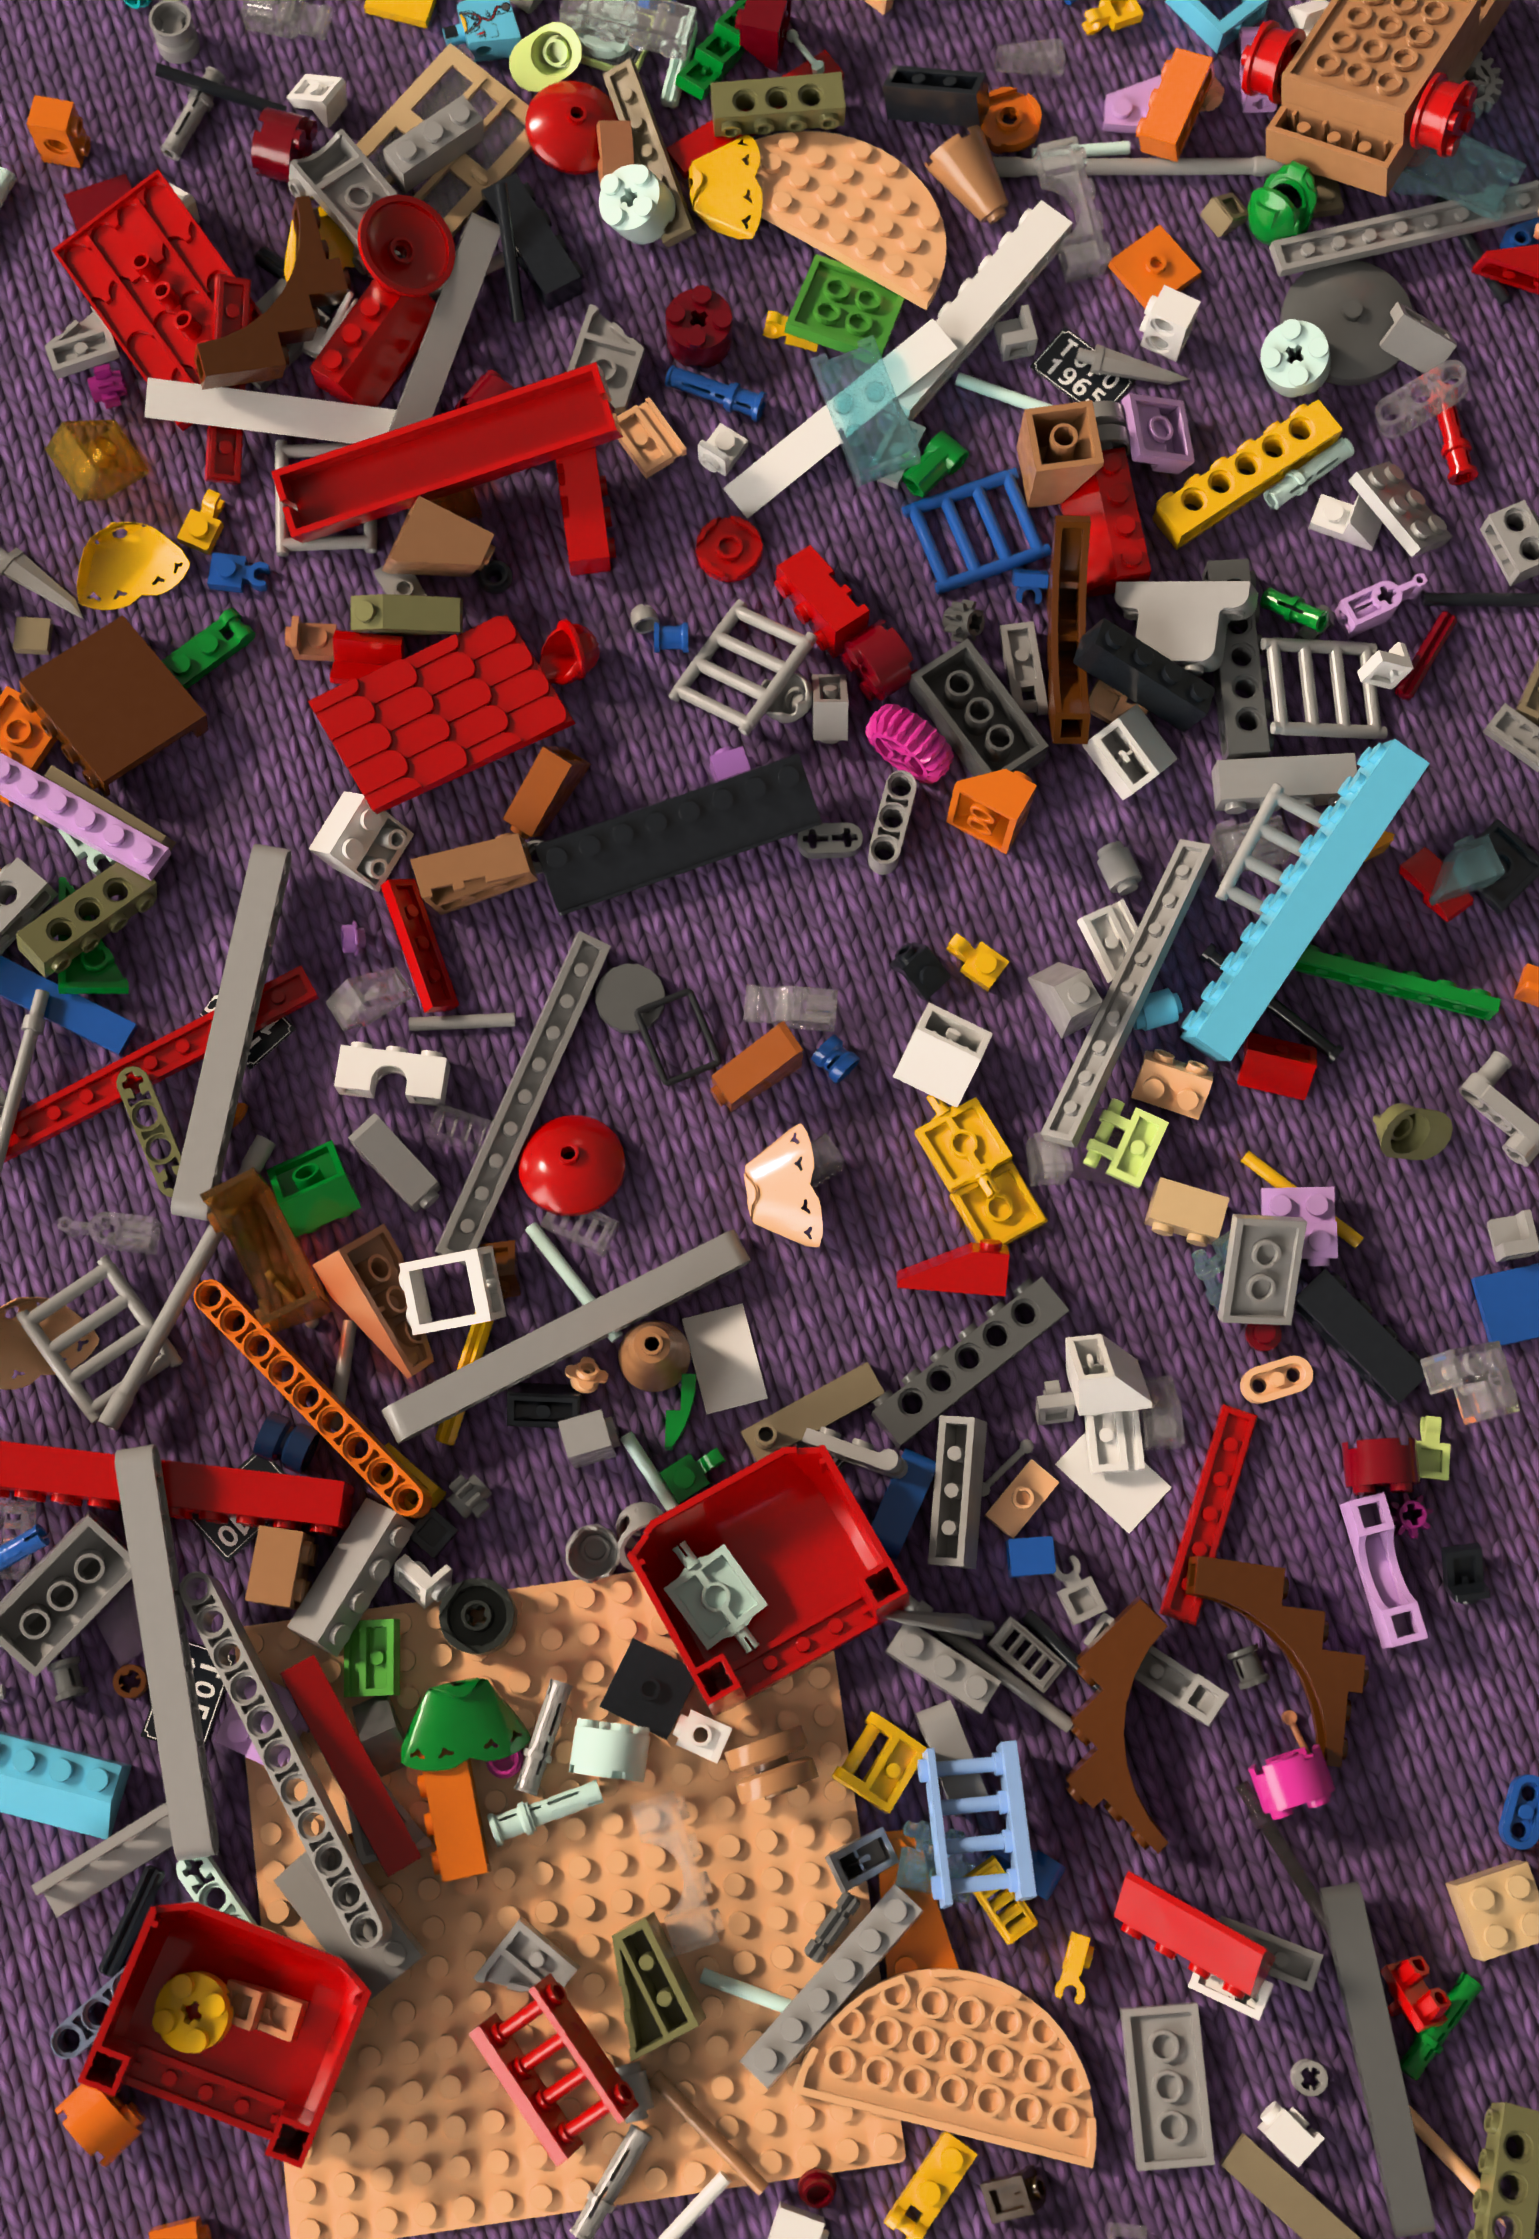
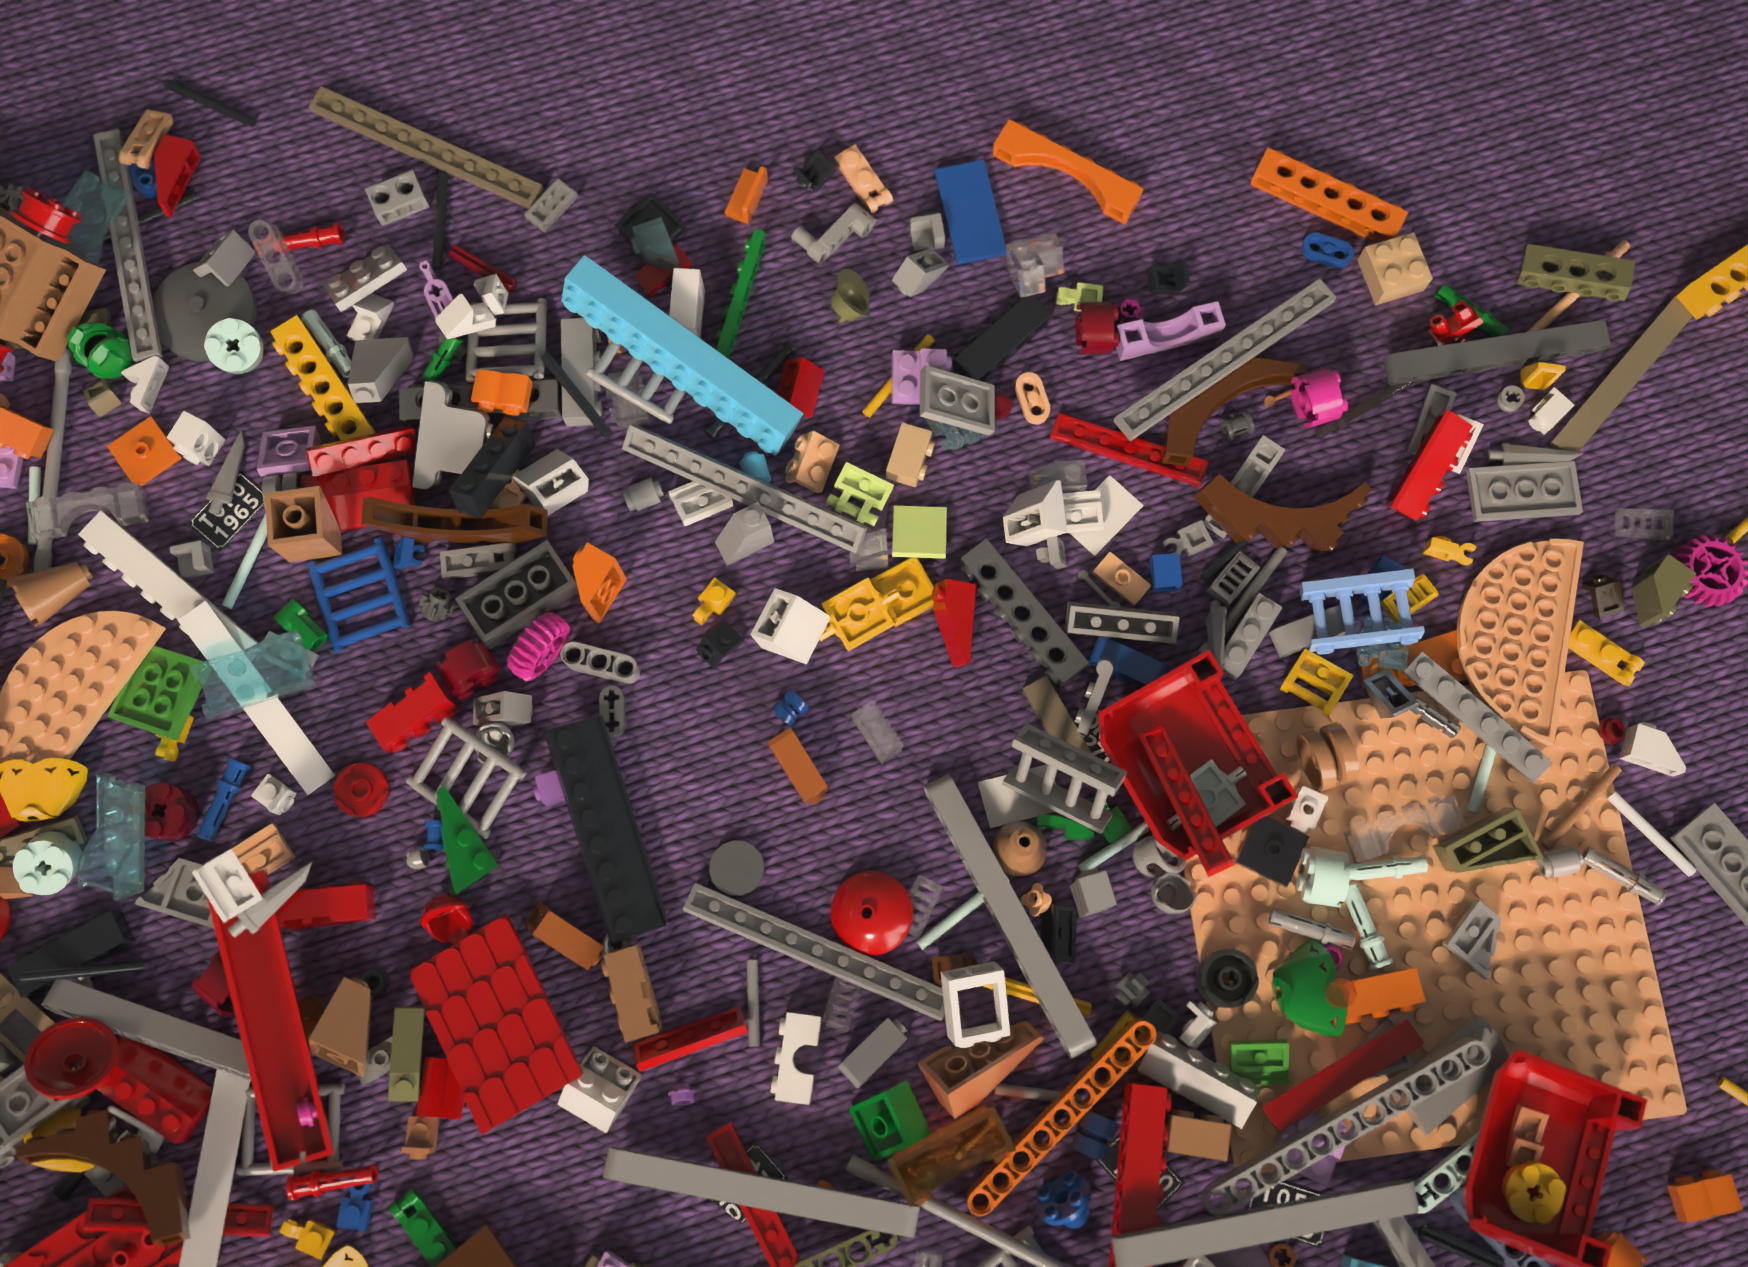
camera: 85 degrees left, 0 degrees up
(208, 1402) = (1065, 1200): none -> blue plate
(263, 529) = (320, 1182): none -> red pin
(339, 504) = (306, 1112): none -> dark pink plate
(368, 998) = (733, 1079): clear slope -> none
(380, 1733) = (1314, 1054): flat silver slope -> none
(453, 1762) = (1340, 993): none -> clear orange tile
(527, 2089) = (1569, 933): red fence -> none
(571, 430) = (272, 900): none -> light grey bar
(594, 387) = (227, 885): none -> white plate
(622, 1840) = (1386, 868): none -> light aqua pin
(648, 671) = (465, 851): none -> green wing
(652, 274) = (116, 849): none -> clear light blue piece
(669, 1082) = (759, 810): black piece -> none
(708, 1562) = (1186, 800): none -> red tile
(754, 1413) = (1072, 761): none -> light grey fence
(779, 1189) = (896, 749): light nougat piece -> none
(795, 1005) = (747, 741): clear piece -> none
(1079, 1225) = (919, 532): none -> yellowish green tile
(1160, 516) = (361, 450): none -> plate
(1221, 2090) = (1522, 455): none -> light grey bar
(1246, 680) = (501, 392): none -> orange brick
(1248, 775) = (576, 395): none -> black bar
(1250, 266) = (149, 379): none -> white slope
(1276, 530) = (377, 367): none -> light grey slope
(1342, 1647) = (1224, 359): none -> light grey plate
(1343, 2120) = (1540, 375): none -> yellow slope
(1345, 627) = (462, 318): none -> white slope
(1379, 913) = (688, 299): none -> white window
(1454, 1225) = (919, 272): none -> light grey slope

